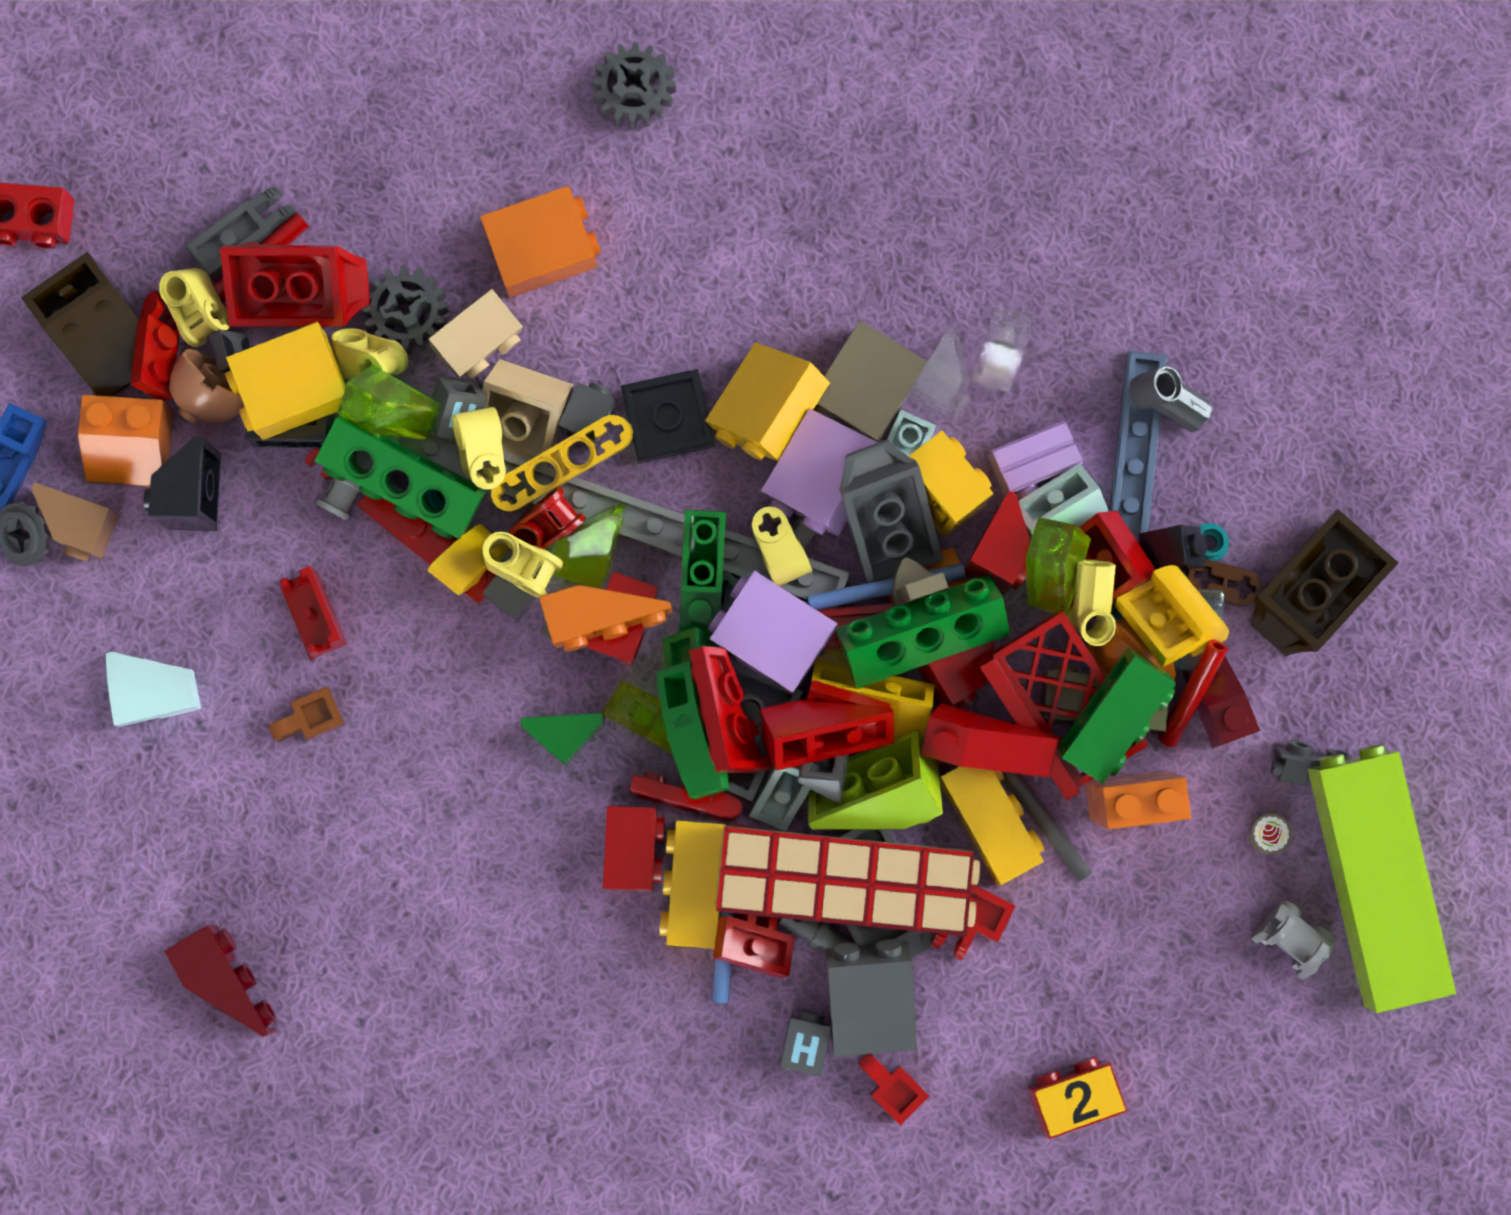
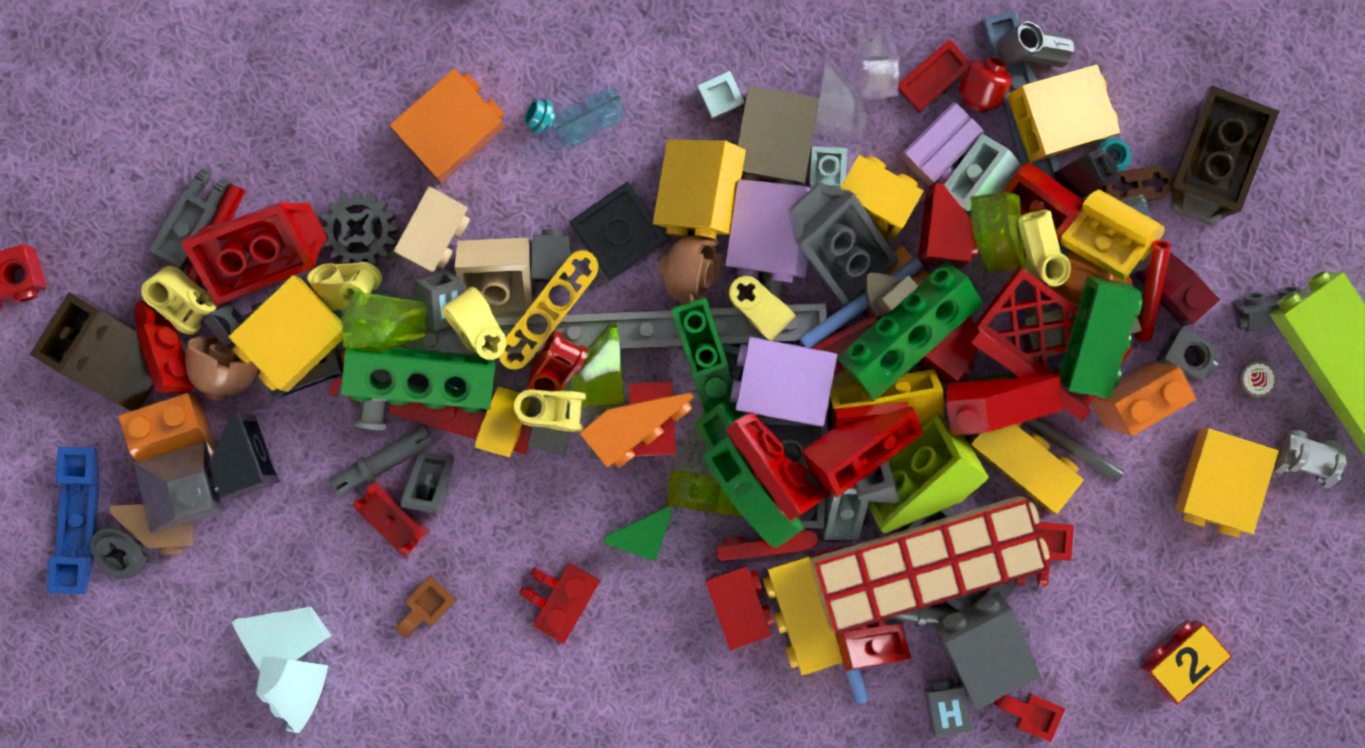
camera: 20 degrees left, 5 degrees up
(109, 491) = (177, 488): none -> flat silver slope
(135, 743) = (291, 689): none -> light aqua slope
(327, 550) = (369, 468): none -> dark grey pin
(366, 592) = (428, 483): none -> dark grey slope
(453, 773) = (565, 603): none -> red hinge
(635, 268) = (539, 115): none -> teal plate
(668, 293) = (604, 112): none -> clear light blue hinge
(729, 477) = (691, 268): none -> nougat cylinder
(828, 321) = (721, 95): none -> light aqua plate
(1056, 388) = (934, 75): none -> red tile
(1103, 416) = (985, 84): none -> red head
(1173, 477) = (1063, 113): none -> yellow brick
(1193, 927) = (1225, 482): none -> yellow brick
(1226, 781) = (1174, 351): none -> dark grey brick

